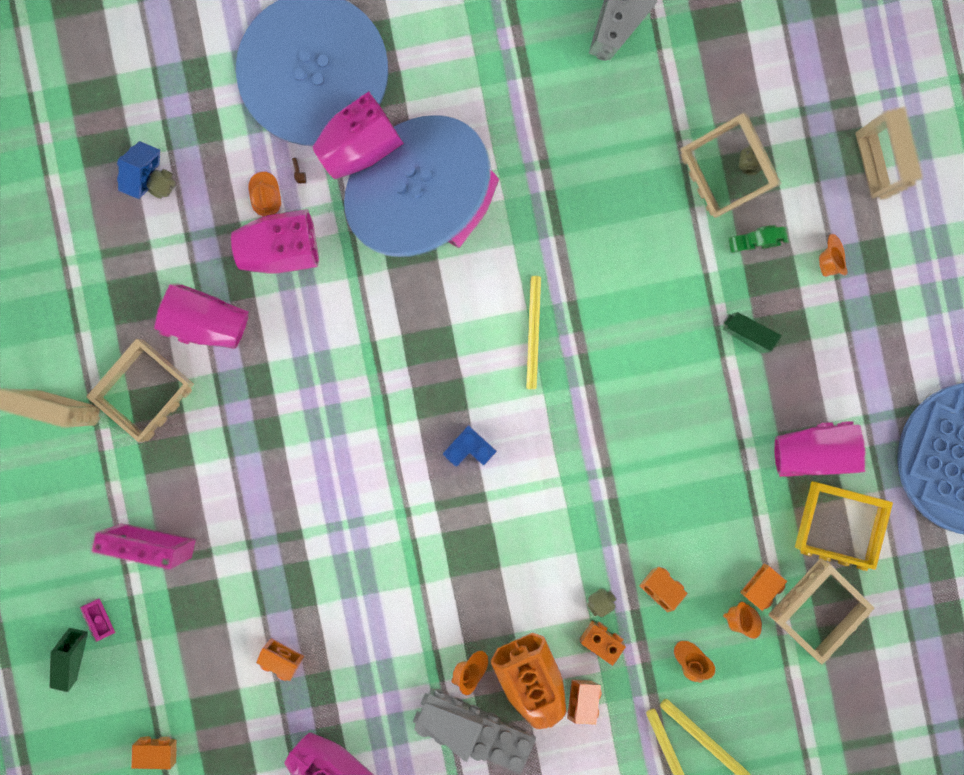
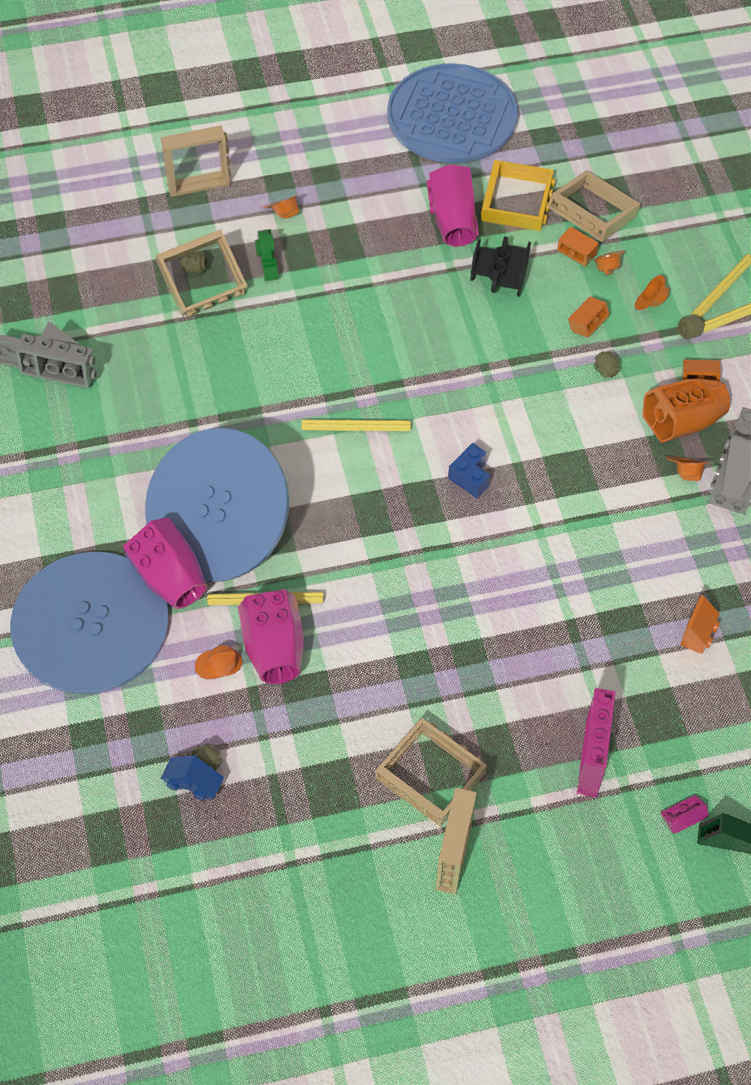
camera: 90 degrees left, 30 degrees down
(200, 318) = (351, 706): dark pink animal -> none
(300, 177) = (202, 630): reddish brown hand -> none
(331, 238) = (237, 598): none -> light yellow axle
(602, 642) = (644, 362): orange brick -> none
(649, 699) = (690, 326): none -> olive head
(732, 511) = (503, 265): none -> black piece
(751, 332) = (352, 257): dark green slope -> none

